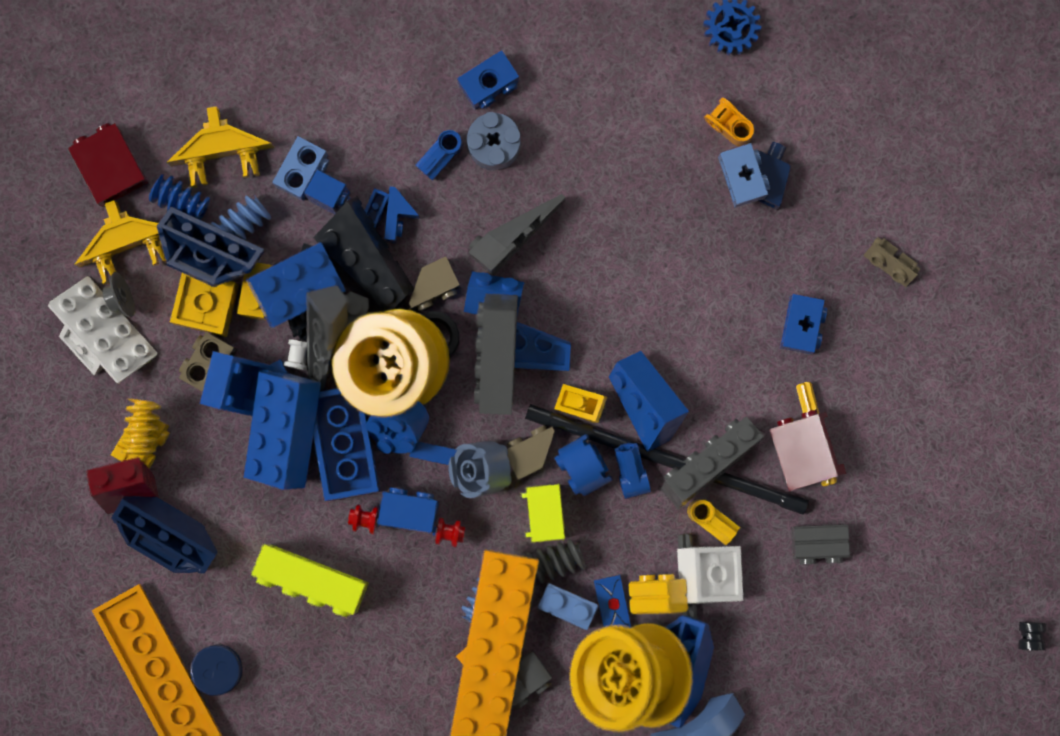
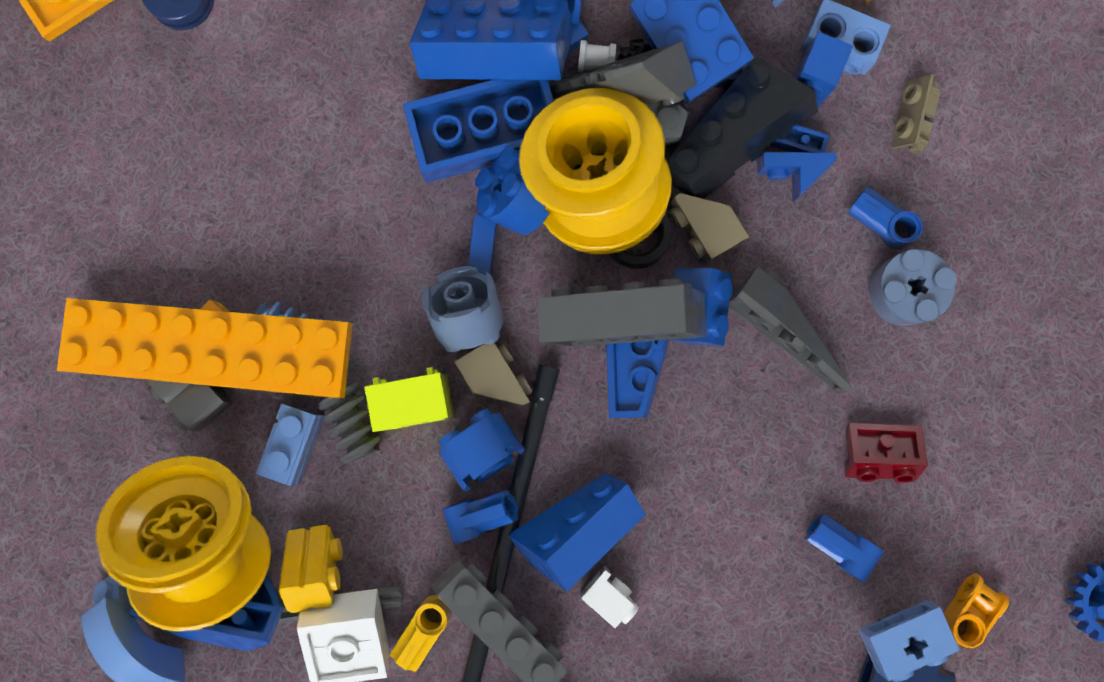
camera: 85 degrees right, 0 degrees up
(310, 579) = (297, 95): neon yellow brick -> none
(352, 118) = (918, 100): none -> dark tan hinge
(407, 512) = (395, 218): blue brick -> none
(496, 67) = (1012, 279): blue brick -> none
(580, 403) = (565, 438): yellow slope -> none
(611, 172) = (885, 452): none -> dark red bracket
(612, 601) = (300, 504): blue tile -> none
(680, 205) = (850, 551): none -> blue piece
(698, 382) = (609, 598): none -> white brick

